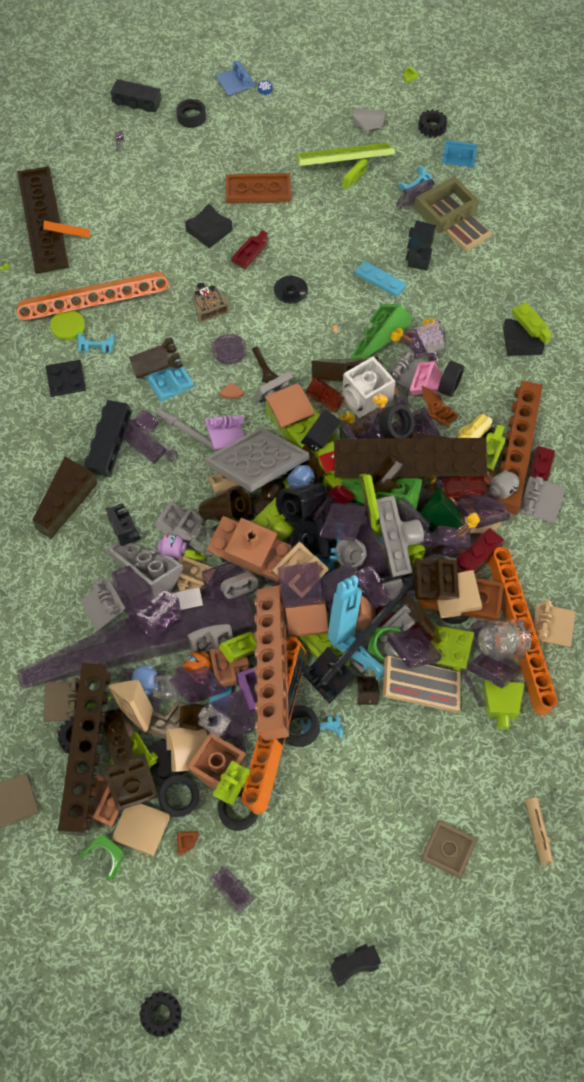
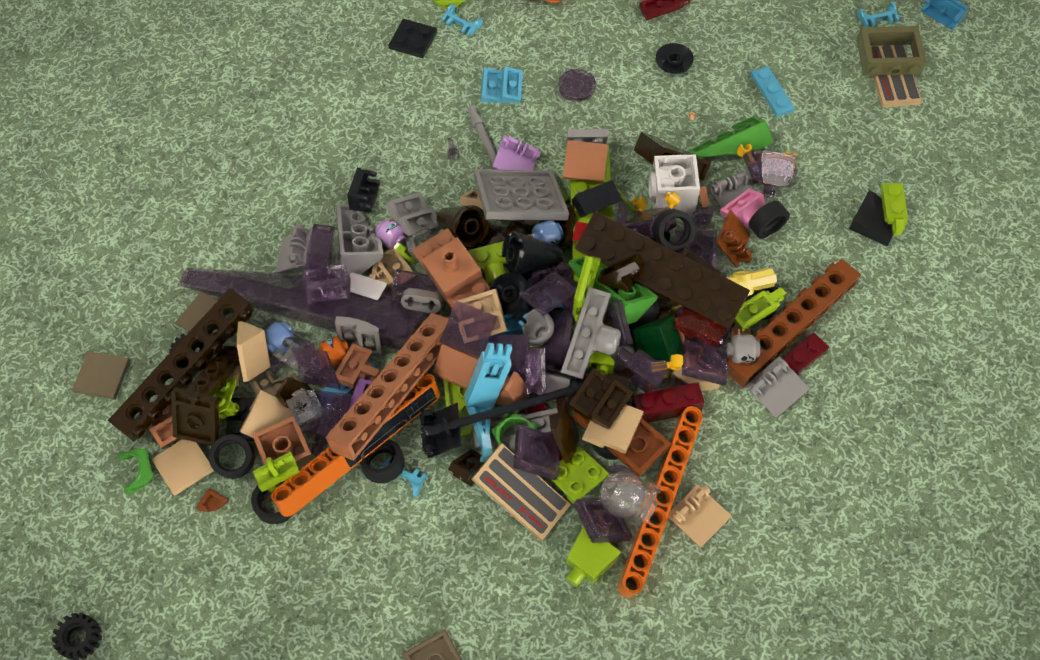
camera: 35 degrees right, 0 degrees up
(65, 494) = (331, 139): dark brown wedge -> none
(108, 438) = (406, 108): black brick -> none
(139, 437) = (437, 116): clear purple plate -> none
(155, 359) = (501, 60): dark brown flag -> none
(209, 302) = (587, 33): dark tan torso -> none
(231, 392) = (550, 125): nougat tile -> none
(231, 889) = (215, 568): hinge -> none
(239, 647) = (375, 354): lime hinge -> none
(267, 373) = (597, 124): dark brown piece -> none
(325, 394) = (634, 170): clear red slope -> none
(341, 494) = (569, 268): dark red tile -> none
(409, 194) = (856, 21): tile -> none
(420, 245) = (831, 68): black arch -> none
(480, 703) = (569, 545): hinge -> none

